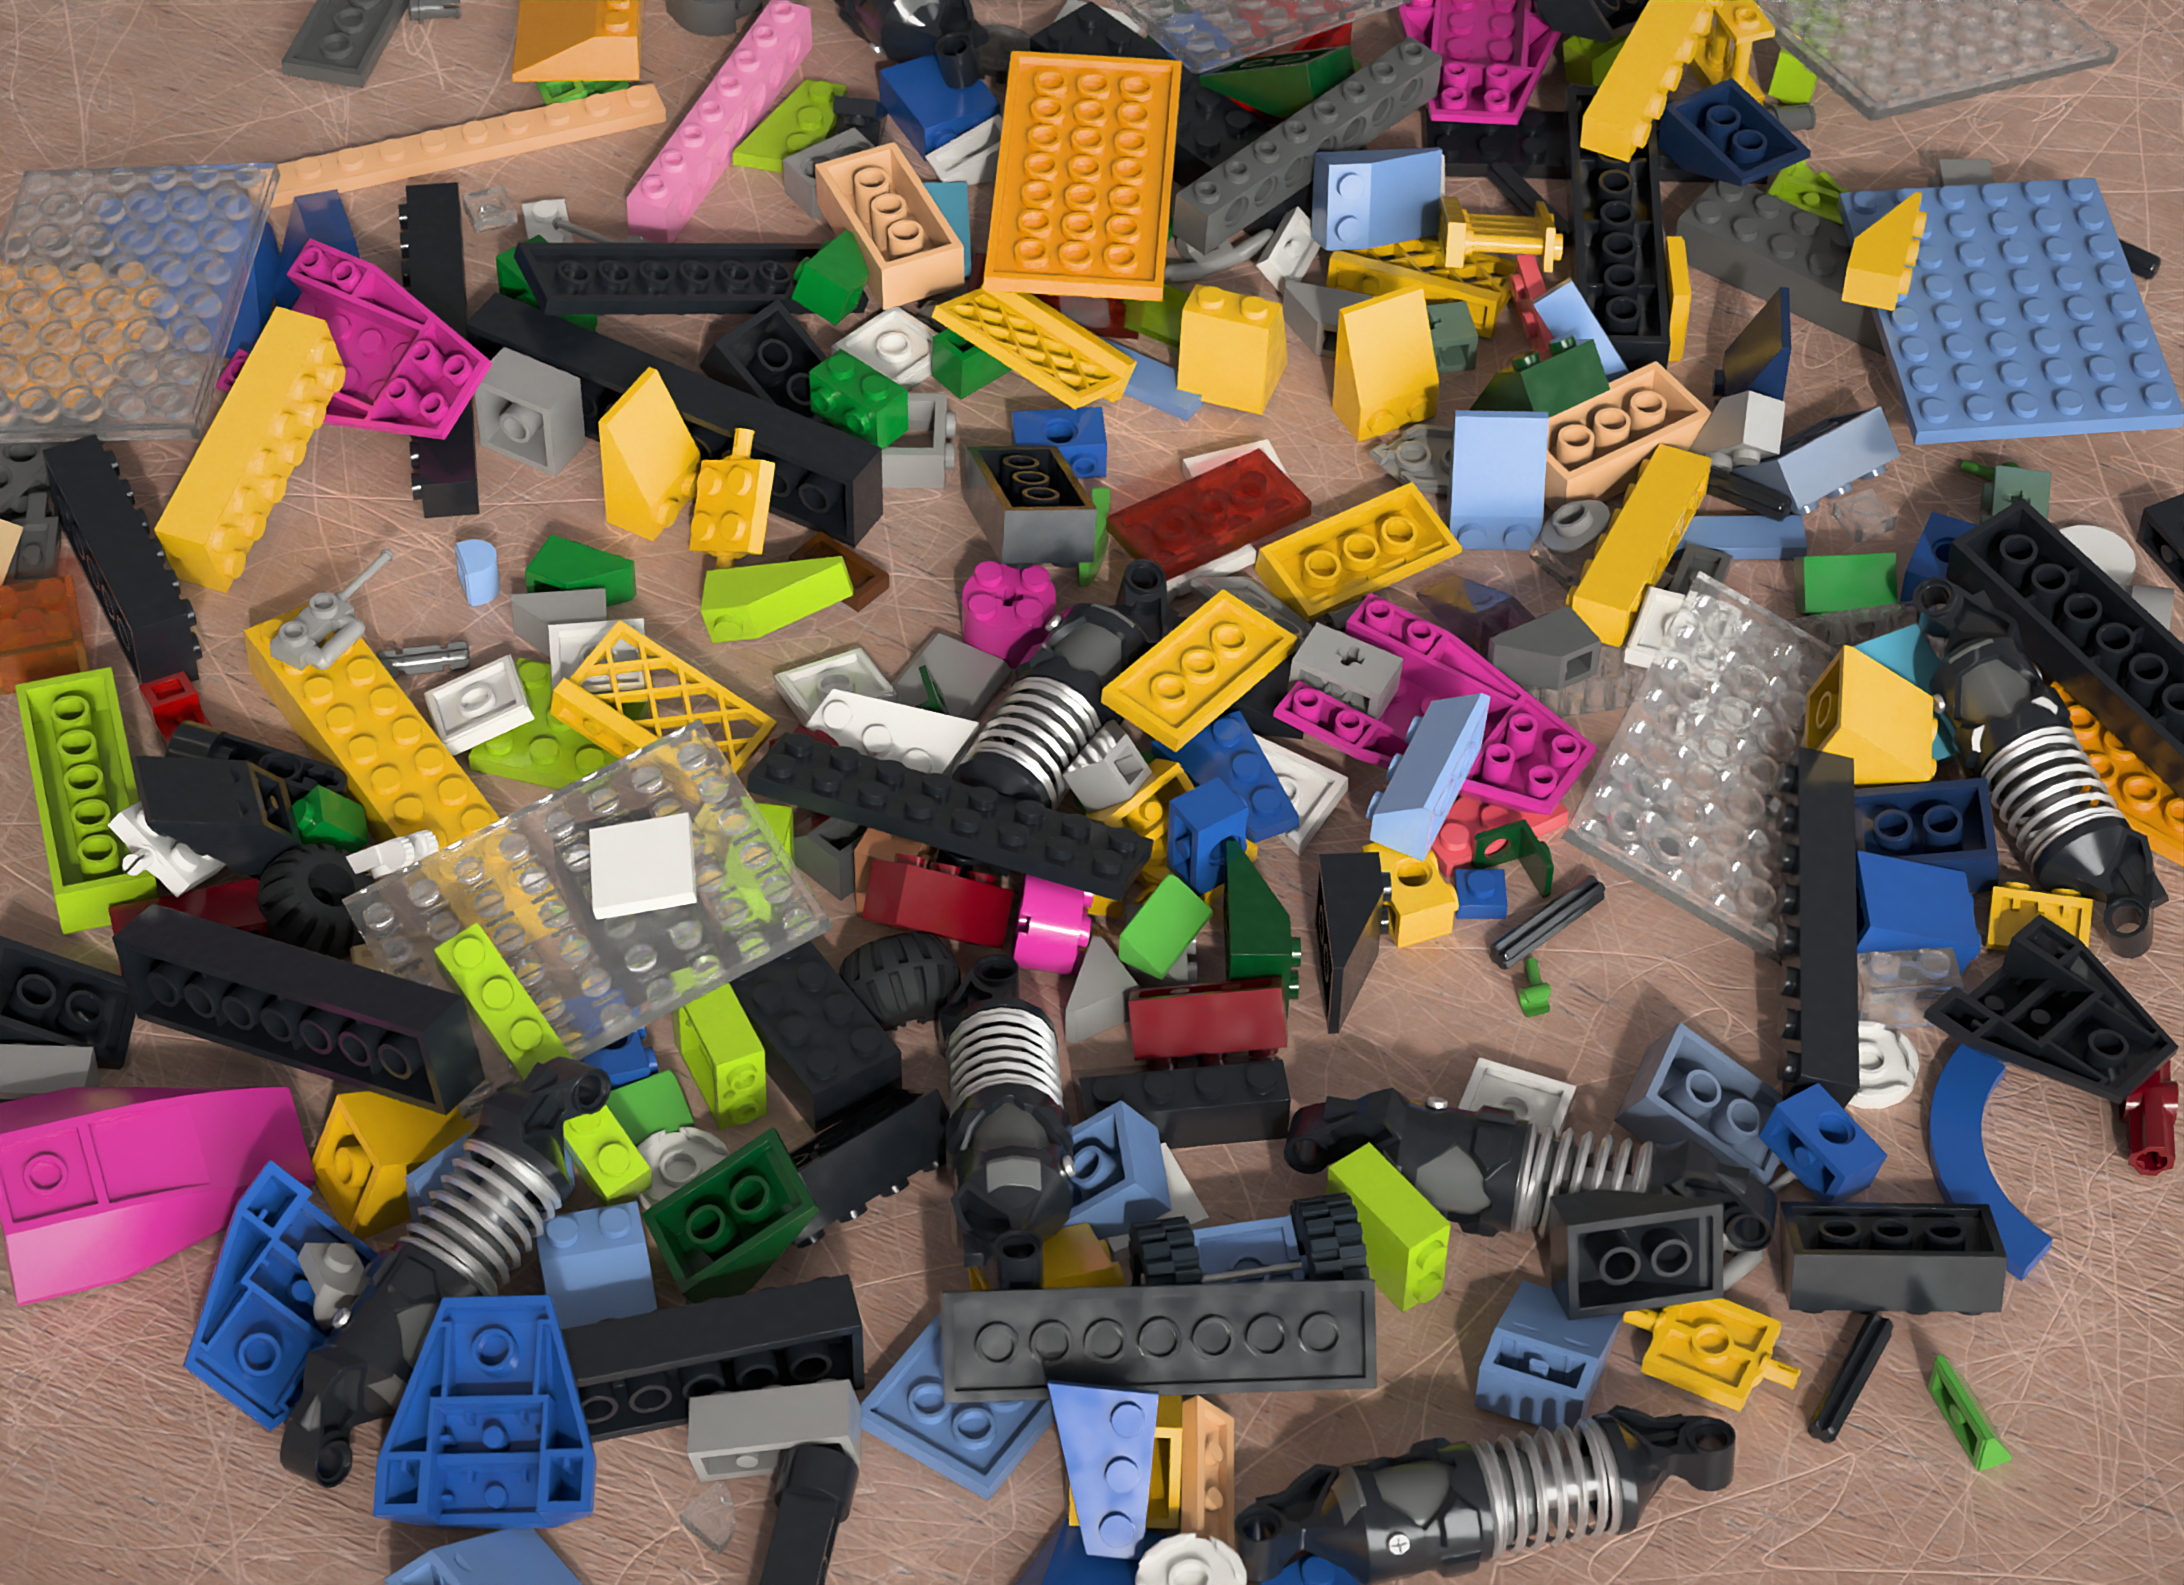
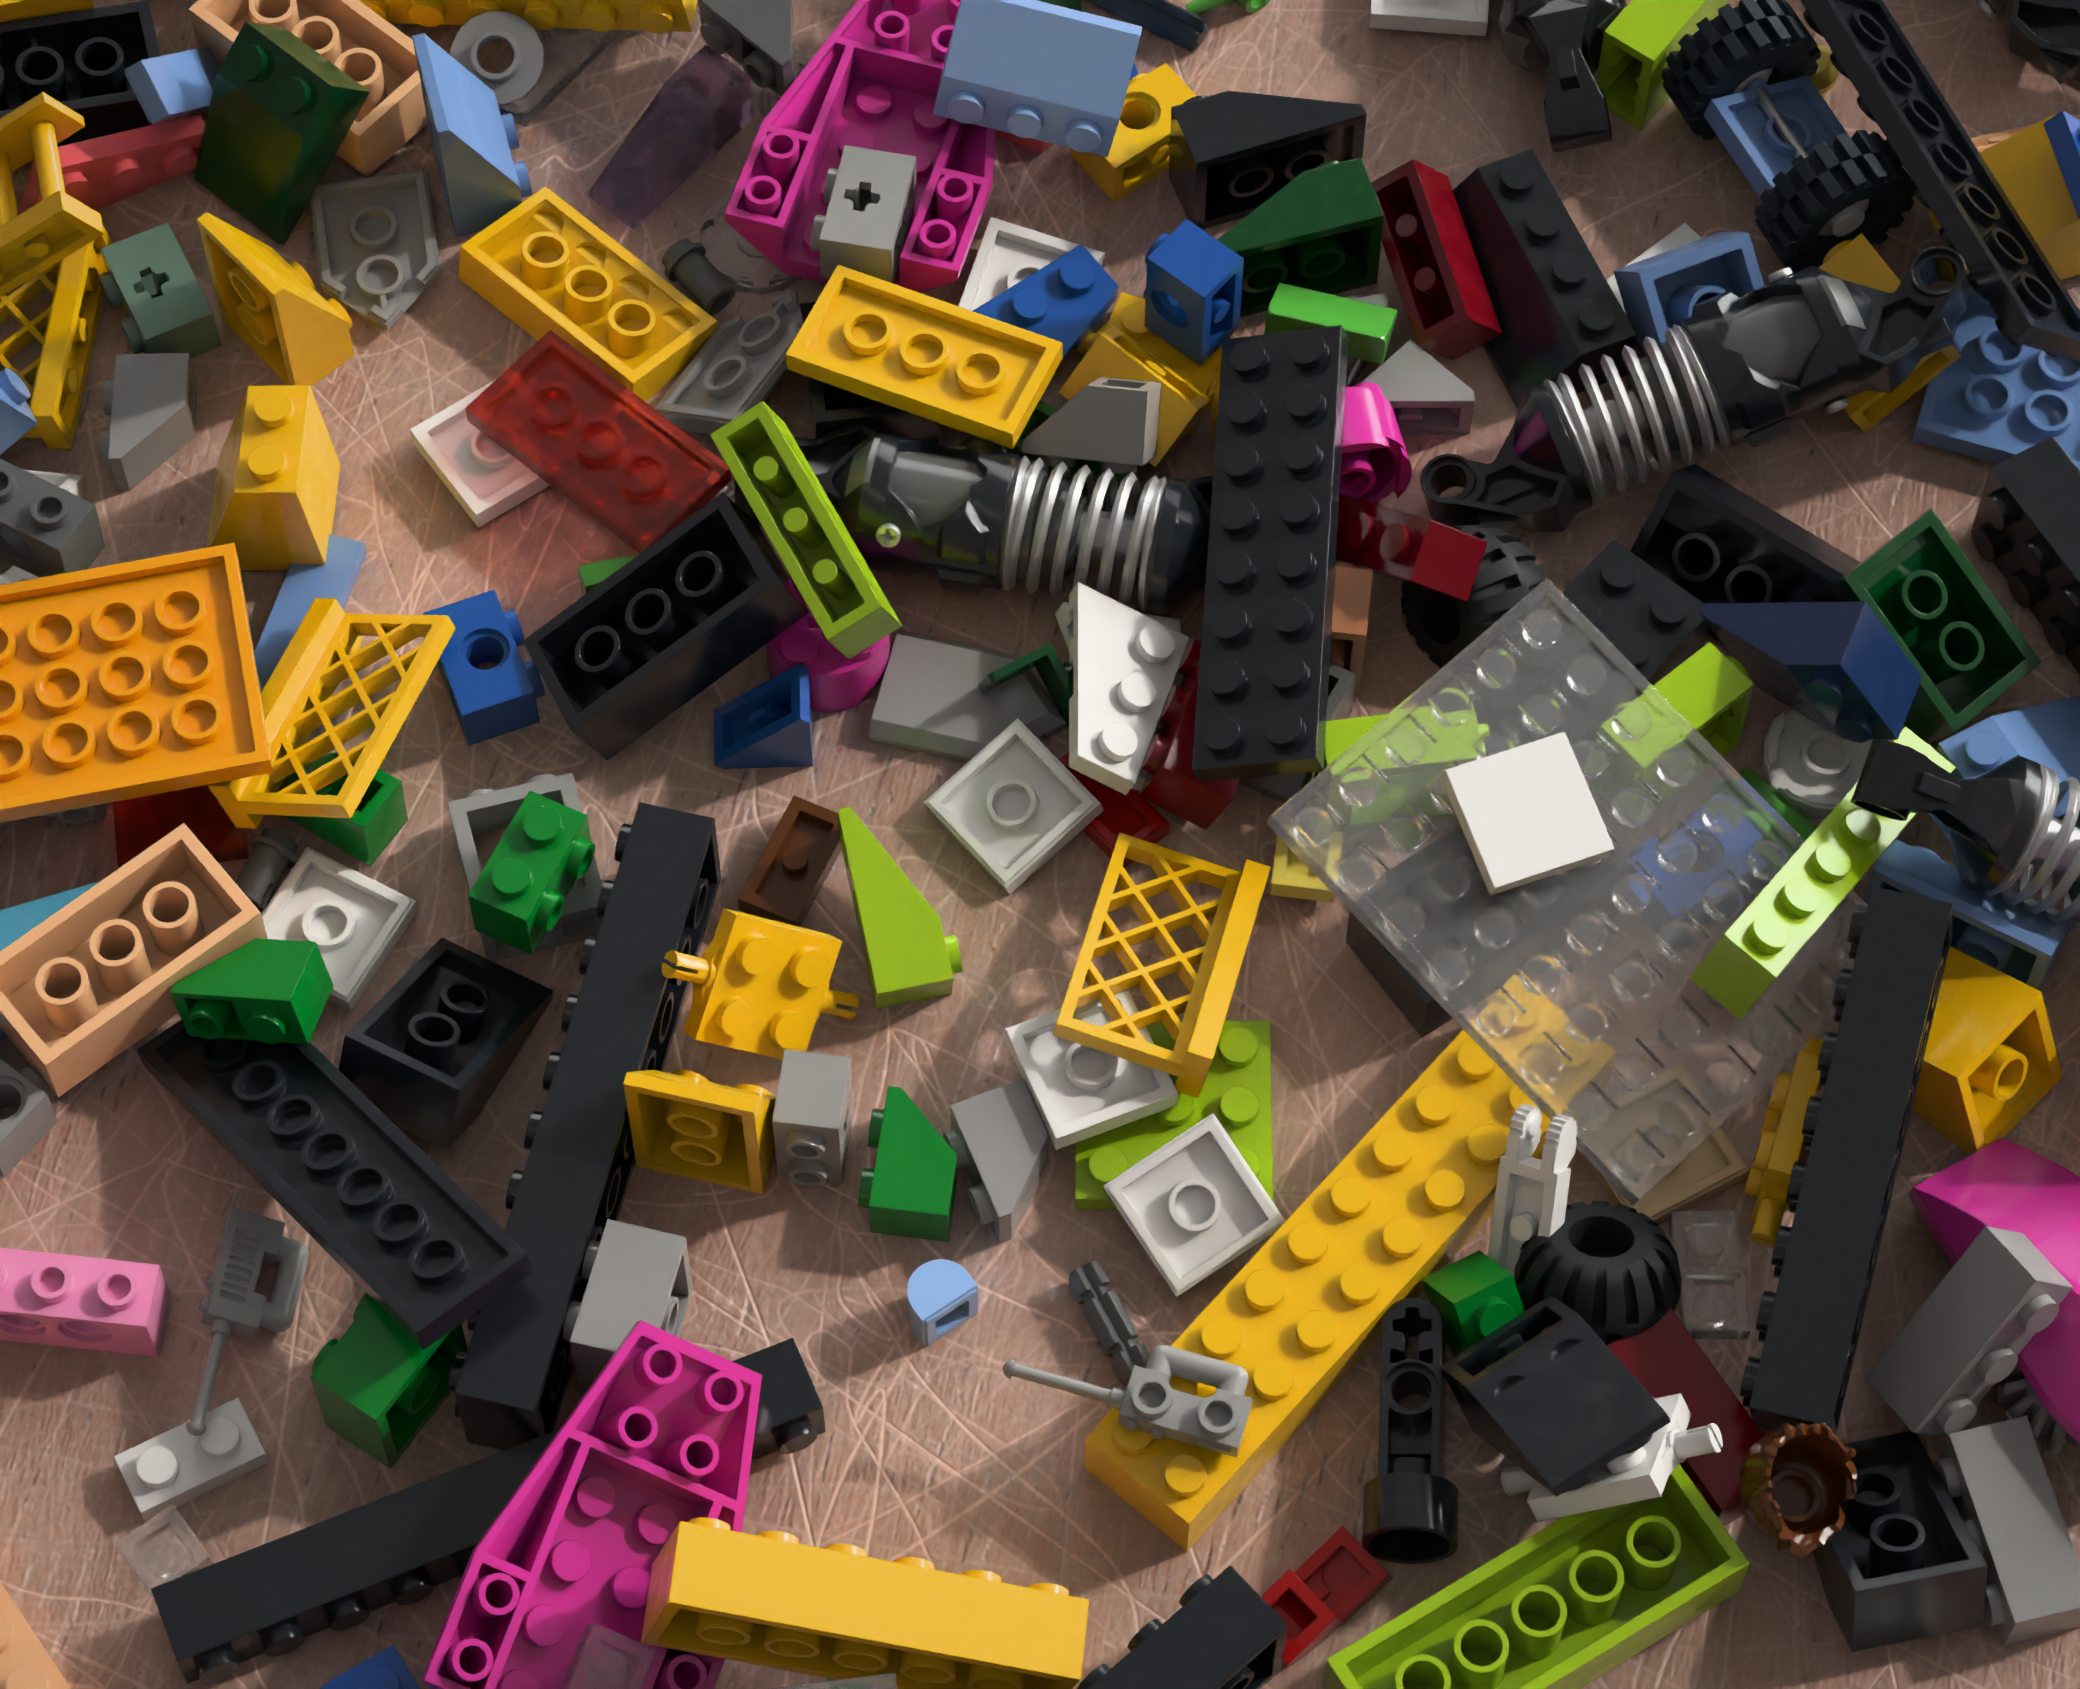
camera: 105 degrees left, 15 degrees up
(84, 920) = (1796, 1485): none -> reddish brown hair
(148, 1059) = (1969, 1332): none -> light grey brick
(629, 517) = (813, 1117): none -> light grey brick
(715, 1108) = (1823, 662): none -> dark blue slope
(944, 583) = (767, 725): none -> blue slope
(1058, 558) = (805, 530): none -> lime brick

